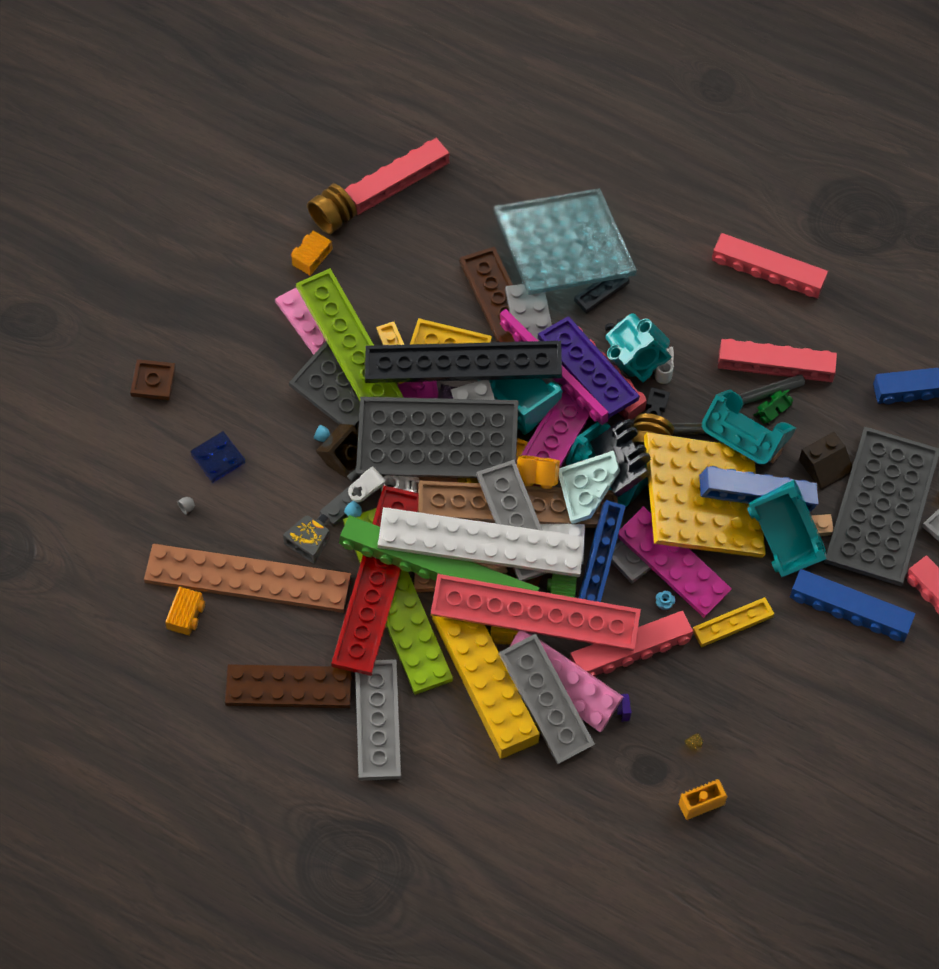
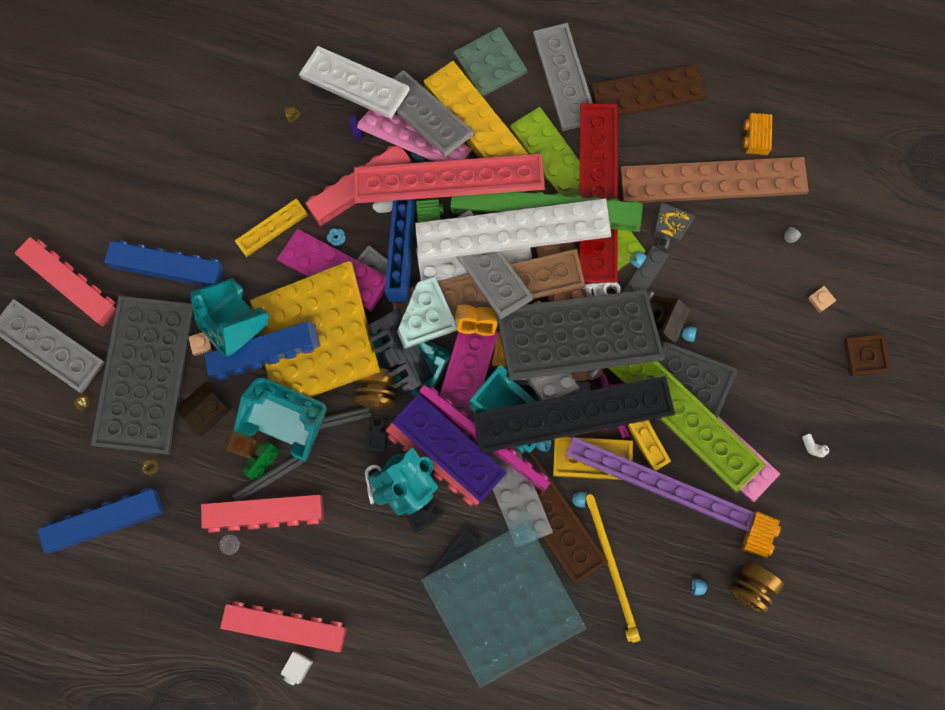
camera: 170 degrees right, 15 degrees up
(177, 441) = (822, 299): none -> light nougat plate
(217, 456) = (779, 291): clear blue plate -> none
(234, 313) = (813, 448): none -> white arm
(369, 483) = (633, 275): white piece -> none
(381, 225) = (699, 587): none -> medium azure hinge
(394, 306) = (660, 484): none -> medium lavender plate
(398, 175) = (699, 654): coral brick -> none
(452, 204) = (632, 632): none -> yellow hinge
(457, 756) = (490, 62): none -> sand green plate
(469, 314) = (579, 499): none -> medium azure hinge
(618, 754) = (354, 82): none -> white plate
(702, 799) = (276, 59): light orange brick -> none
(762, 233) = (296, 668): none -> white brick
(791, 413) = (241, 445): none -> clear orange brick
(812, 342) = (229, 544): none -> clear plate
(882, 420) = (147, 463): none -> clear yellow hinge

